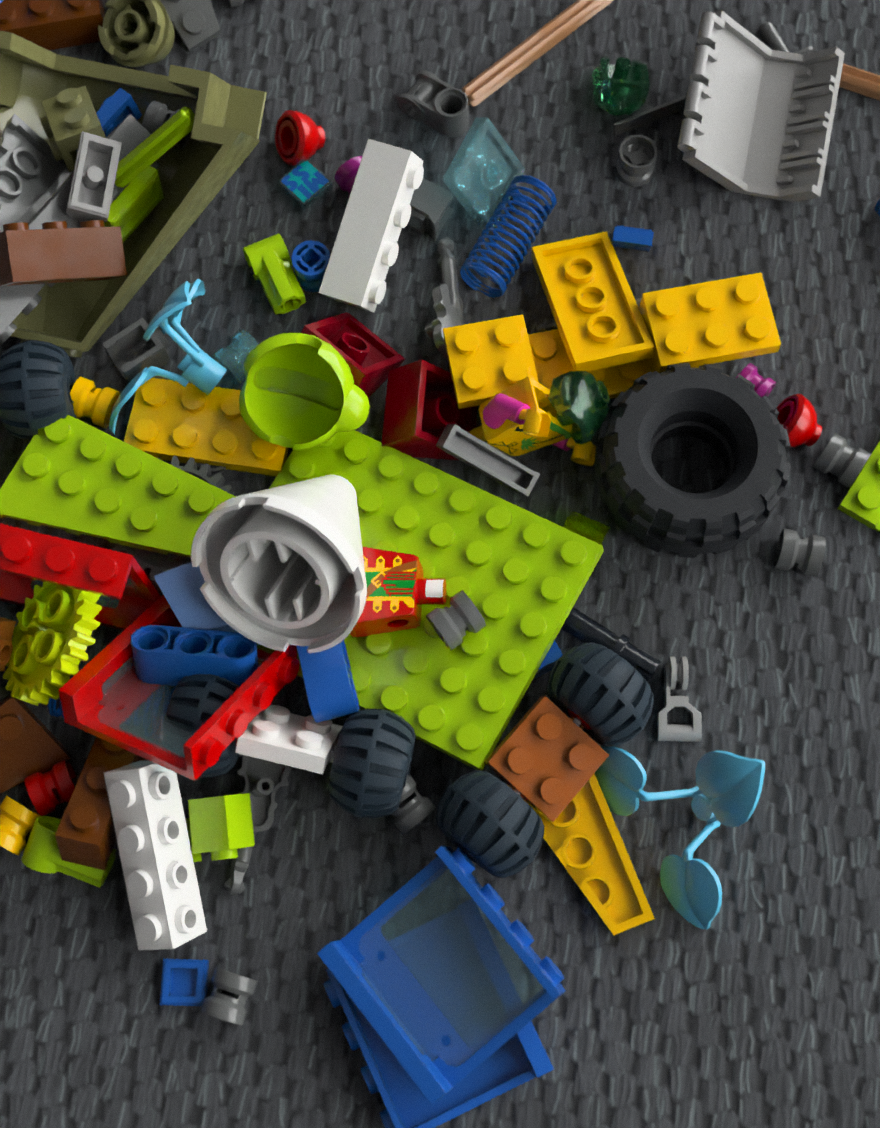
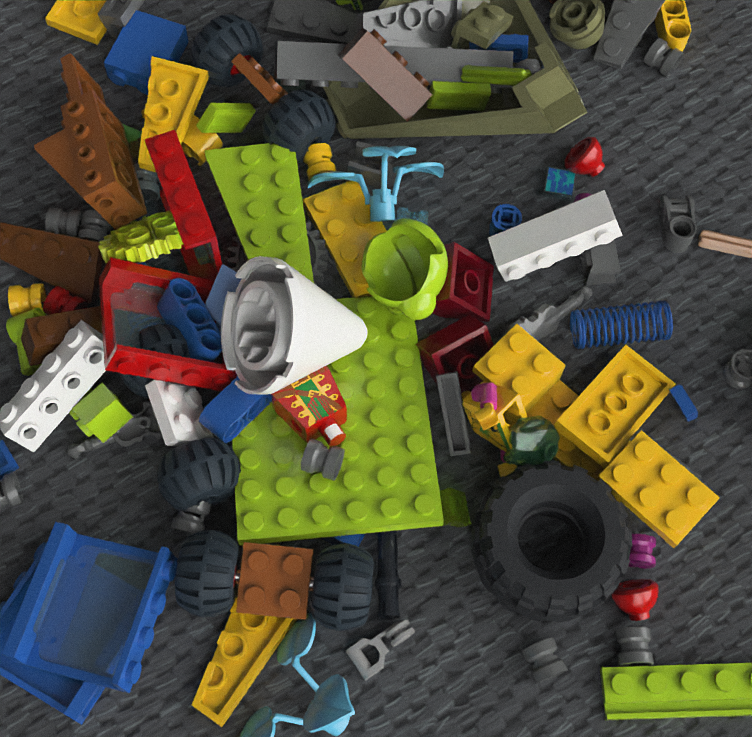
camera: 50 degrees right, 5 degrees down
(93, 178) = (450, 58): light grey brick -> none
(274, 271) = (484, 200): lime piece -> none
(482, 171) = (650, 277): clear light blue plate -> none

